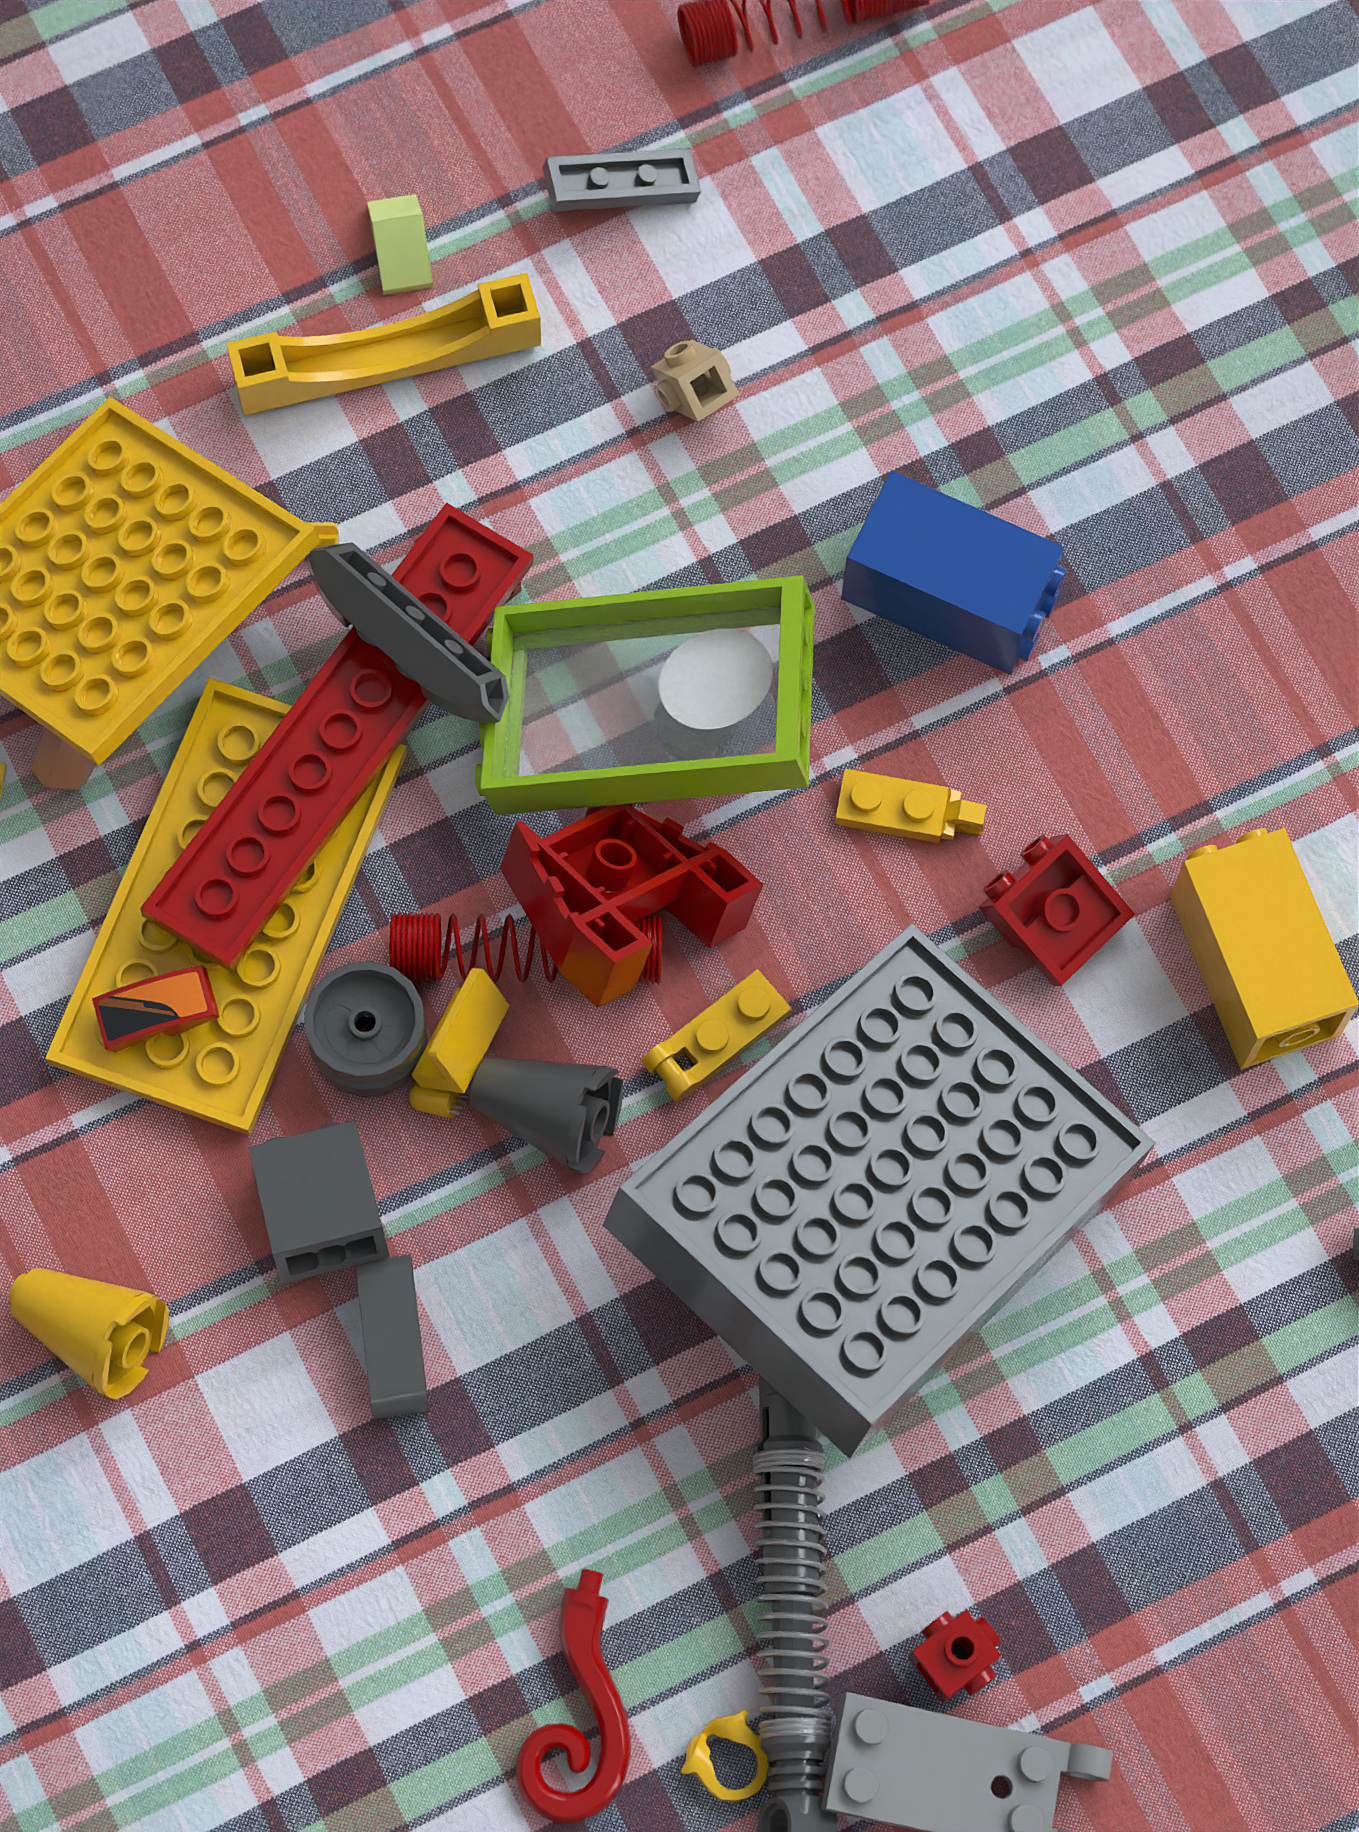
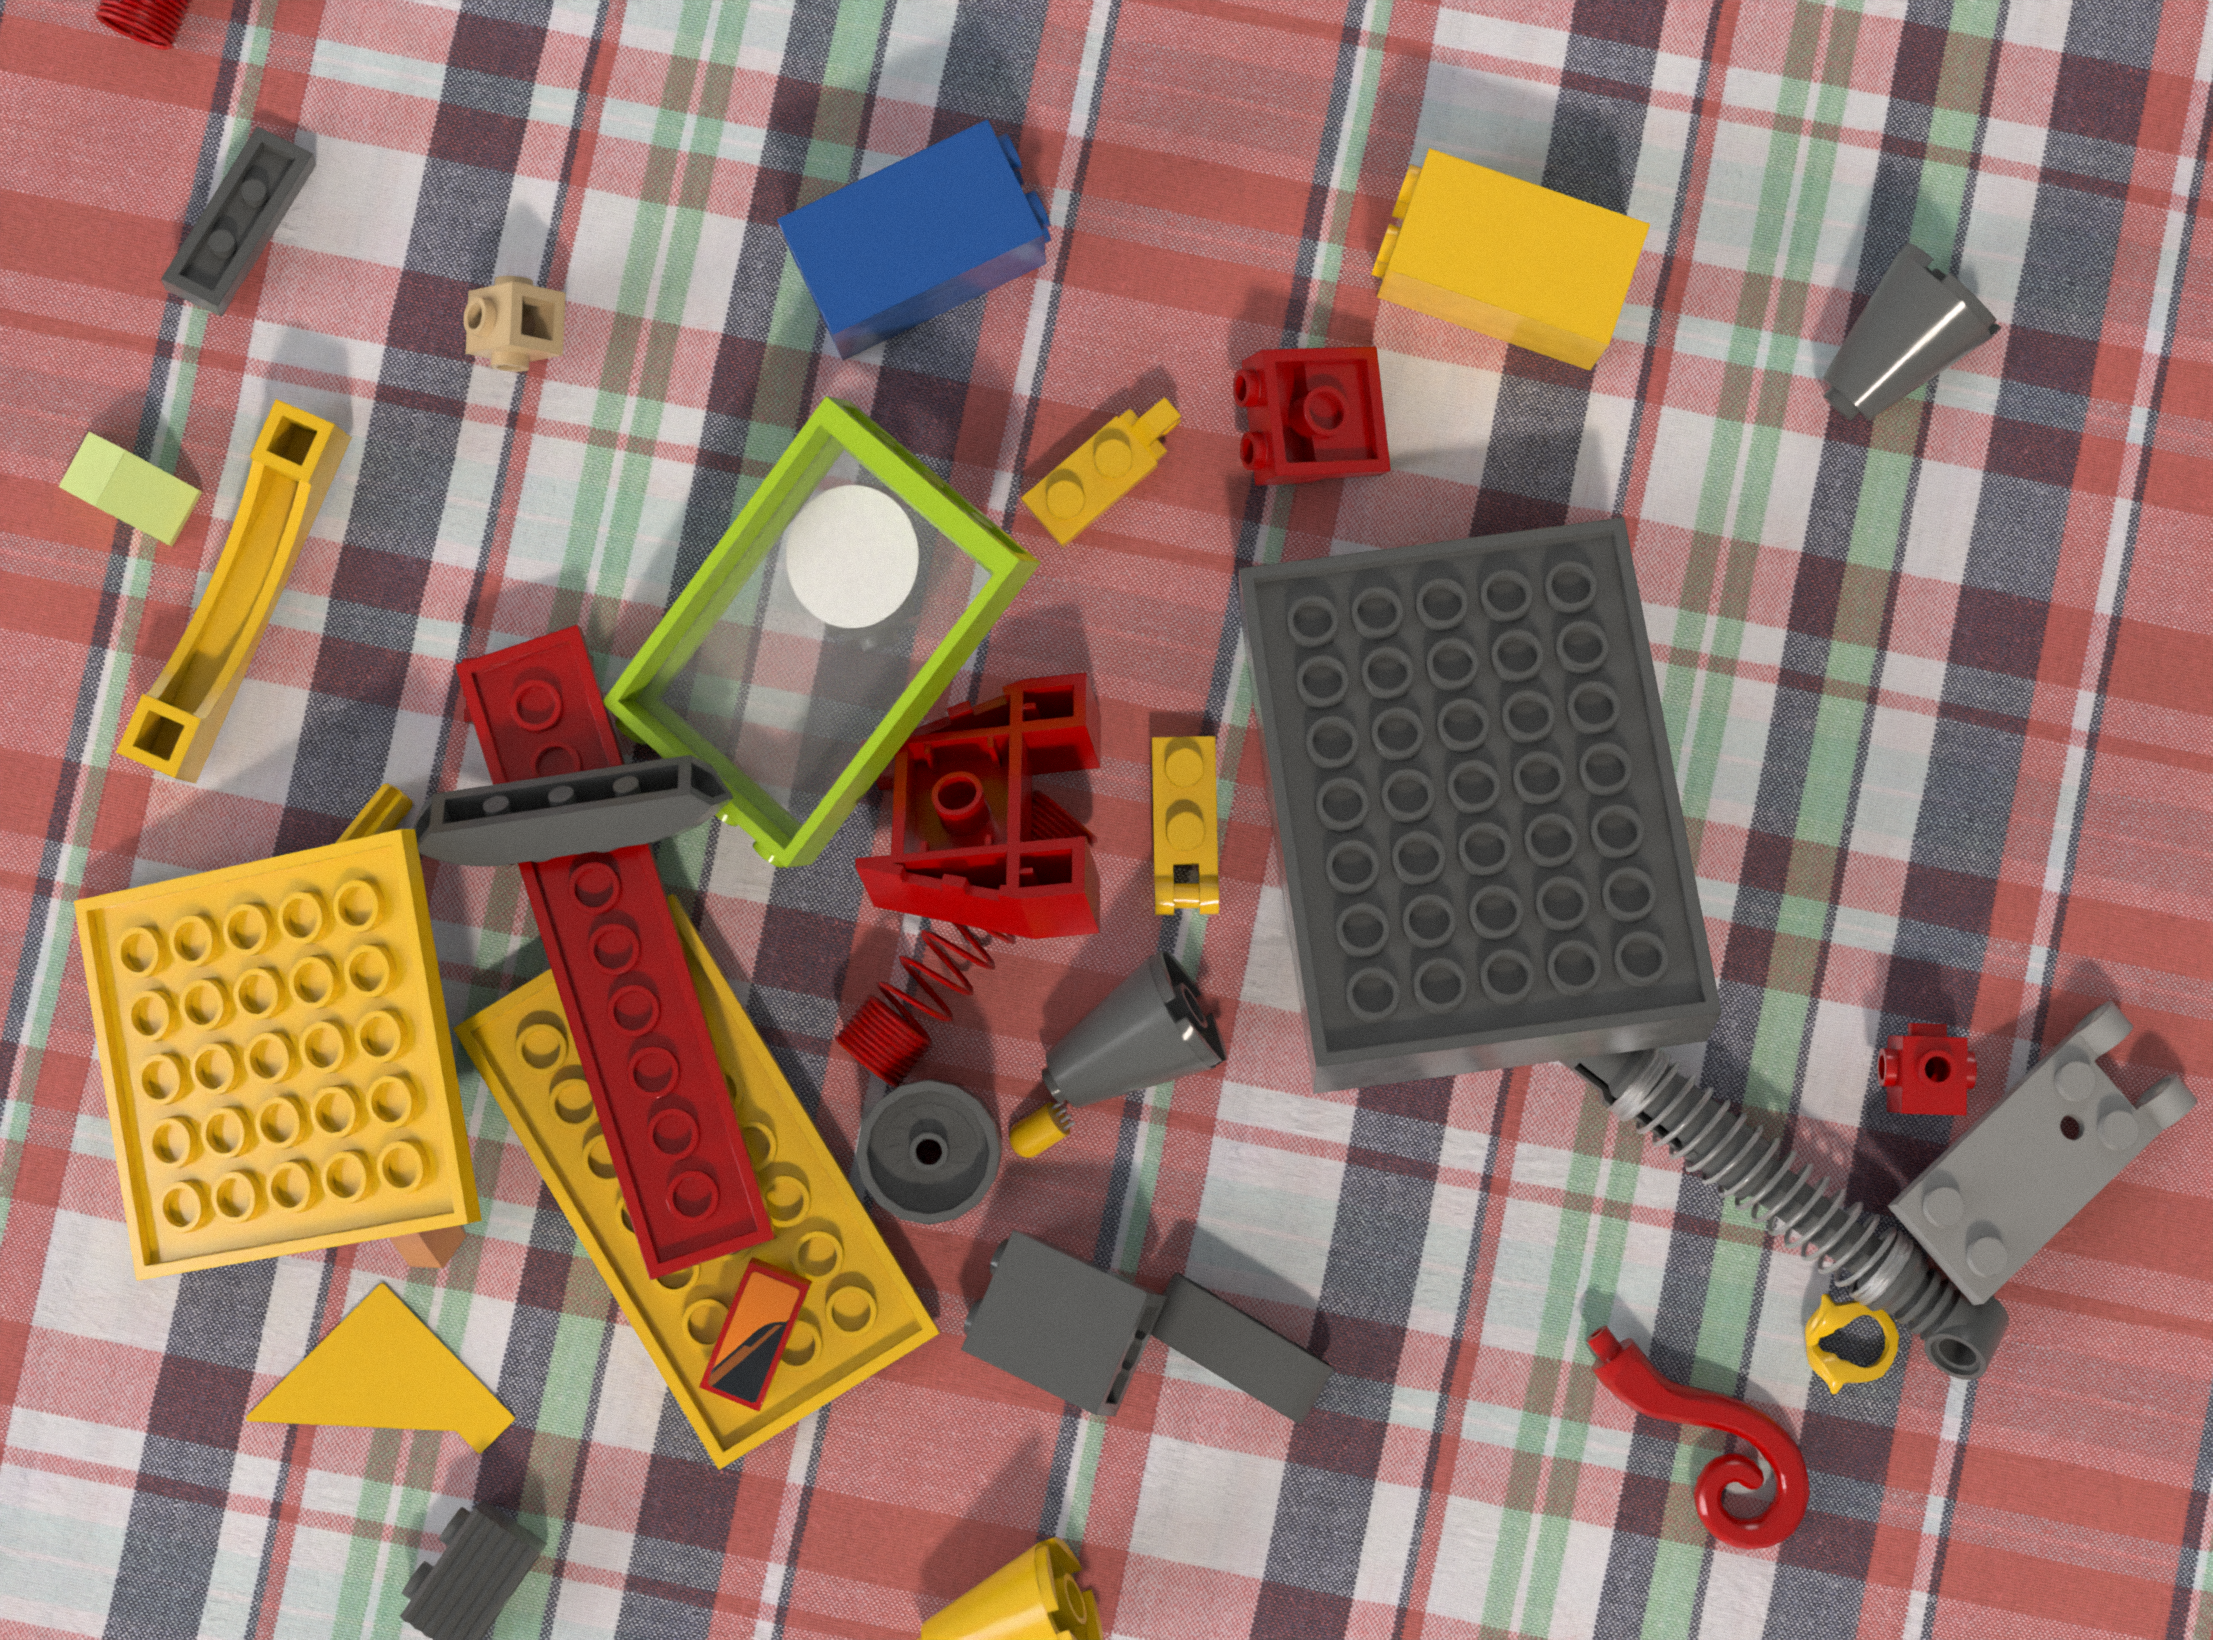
camera: 50 degrees left, 15 degrees up
(462, 1035) = (1006, 1066): yellow panel -> none

